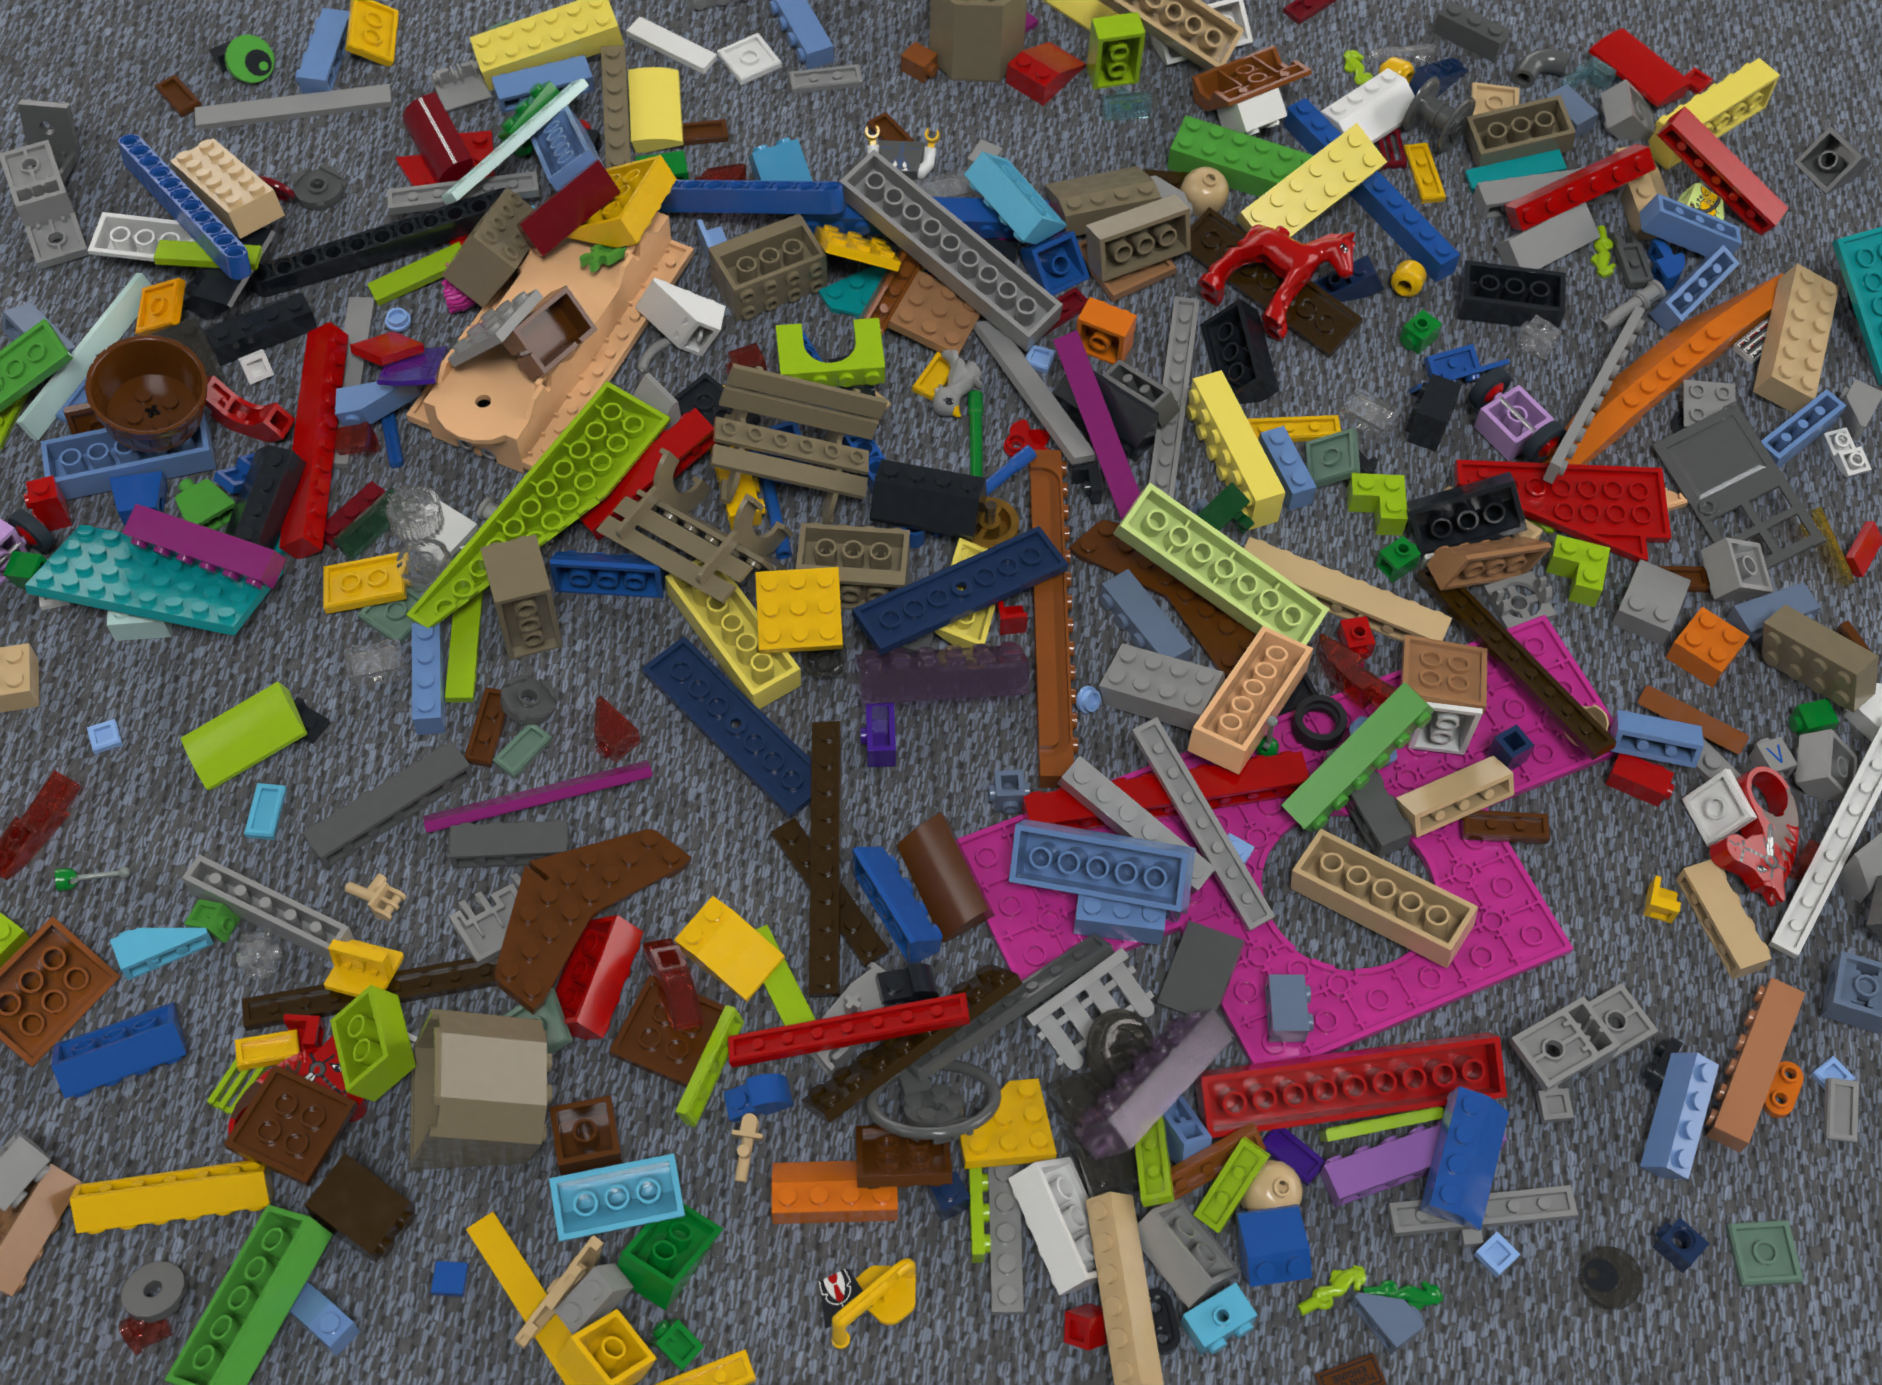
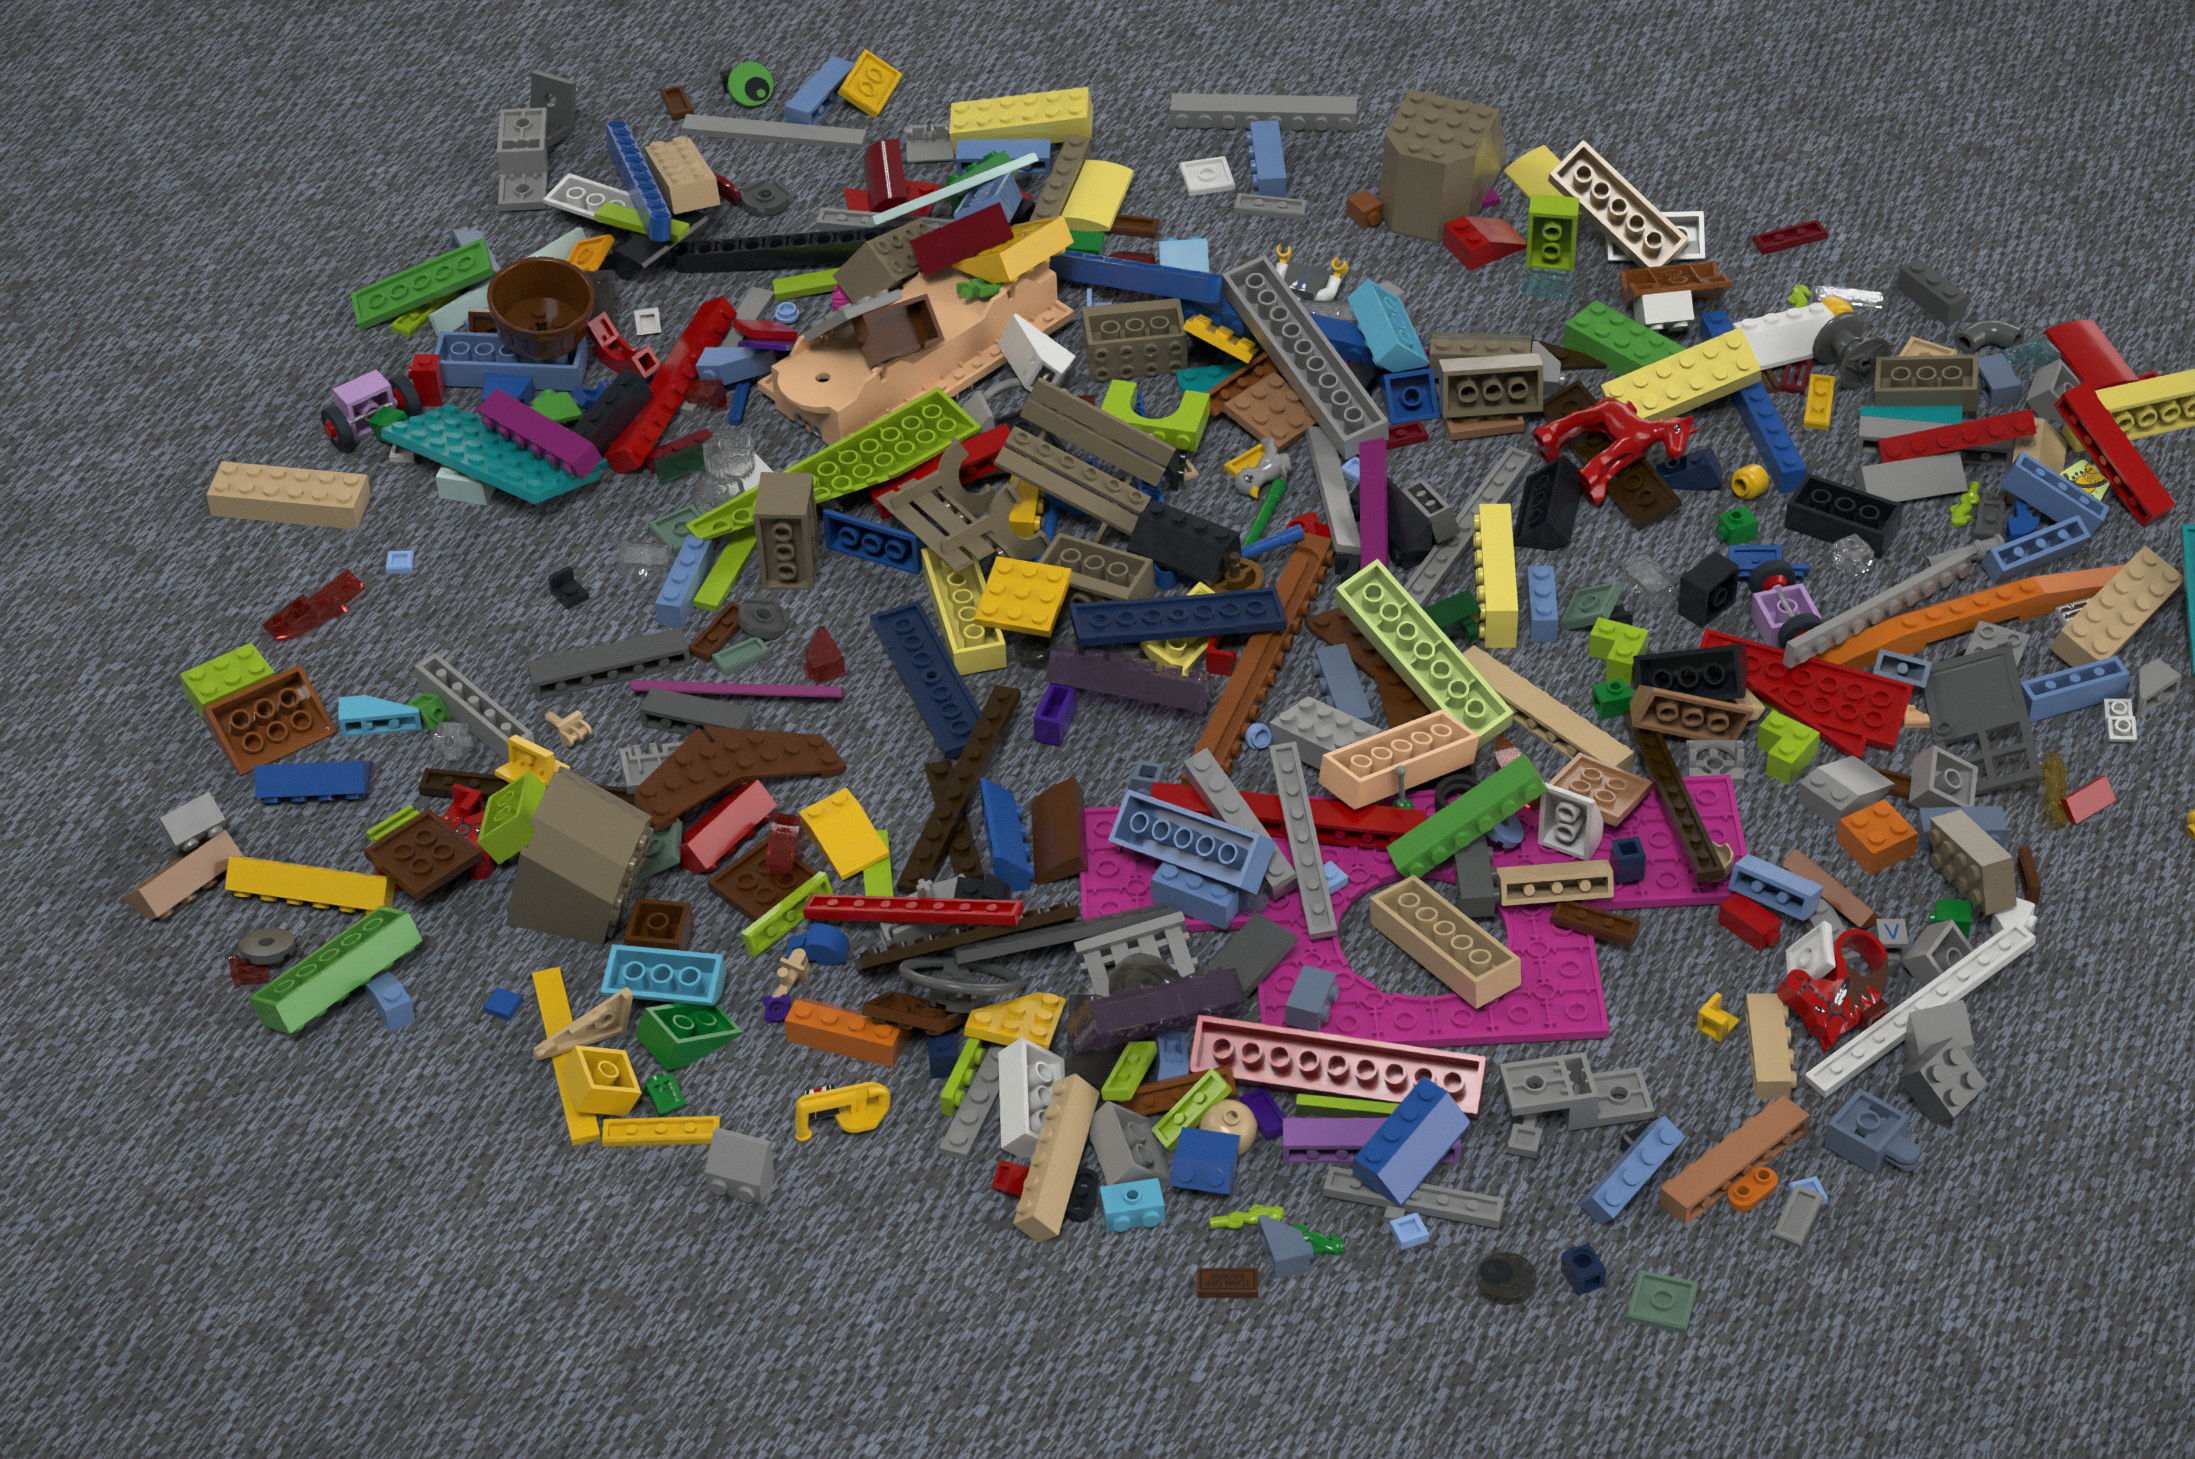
camera: 25 degrees right, 15 degrees down
(68, 878) = (325, 652): hinge -> none
(244, 735) = (512, 583): lime slope -> none
(260, 328) = (666, 292): black slope -> none
(265, 811) = (506, 646): medium azure tile -> none
(266, 1049) = (416, 804): yellow tile -> none
(360, 1209) = (452, 929): dark brown slope -> none
(362, 583) = (661, 501): yellow tile -> none
(593, 1297) = (614, 1031): light grey brick -> none
(671, 45) = (1139, 151): white tile -> none
(754, 1195) = (771, 1002): none -> dark purple plate
(888, 128) = (1307, 256): reddish brown tile -> none
(1106, 330) = (1423, 455): orange brick -> none
(1205, 189) = (1588, 365): tan cylinder -> none
(1299, 428) = (1565, 576): yellow tile -> none
(1356, 636) = (1537, 747): red brick -> none
(1447, 71) = (1882, 322): dark blue slope -> none
(1643, 453) = (1902, 668): none -> sand blue slope

